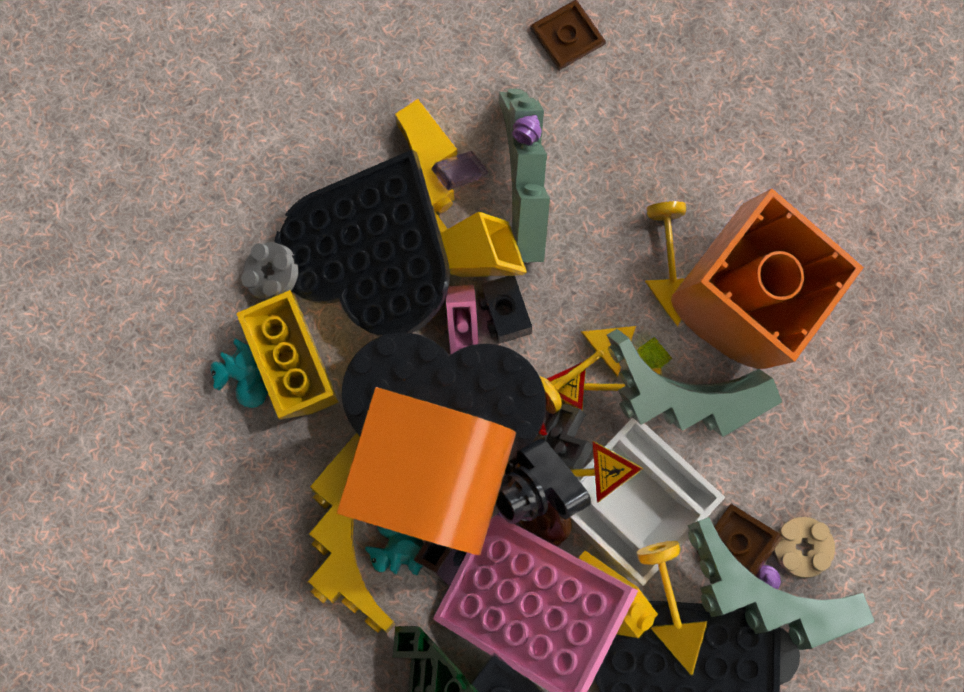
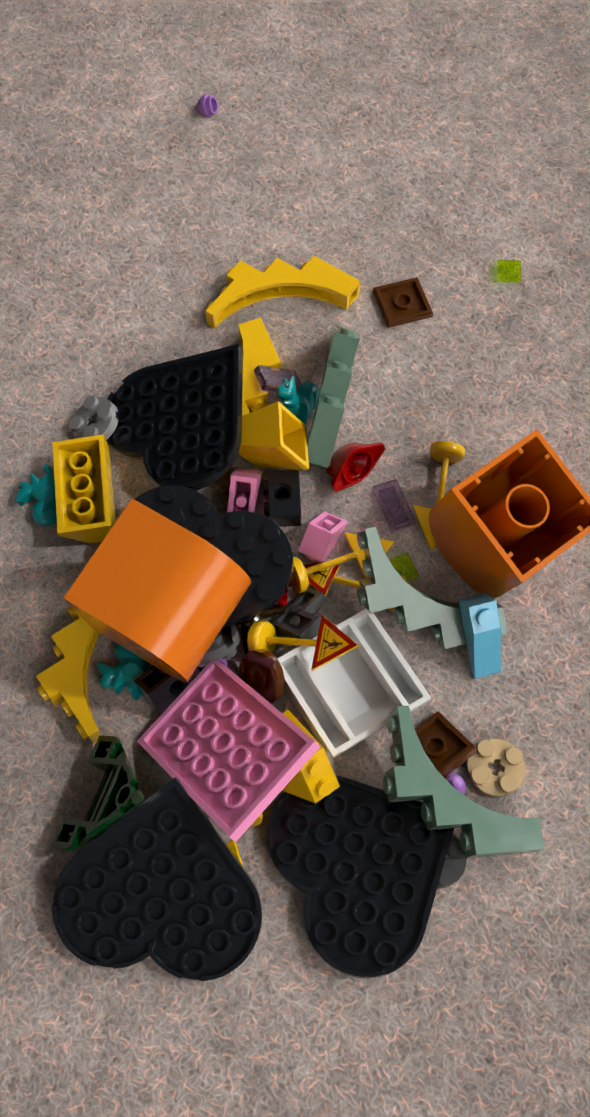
camera: 15 degrees right, 10 degrees down
(423, 41) = (313, 280): none -> yellow arch
(488, 191) = (301, 402): none -> teal animal
(527, 130) = (340, 350): medium lavender plate -> none
(536, 482) = (261, 638): black beam -> none
(560, 342) = (322, 536): none -> bright pink slope
(567, 244) = (351, 461): none -> red hat
(624, 285) = (394, 505): none -> clear purple tile
(681, 639) = (355, 814): yellow piece -> none
(757, 411) = (482, 633): none -> medium azure slope

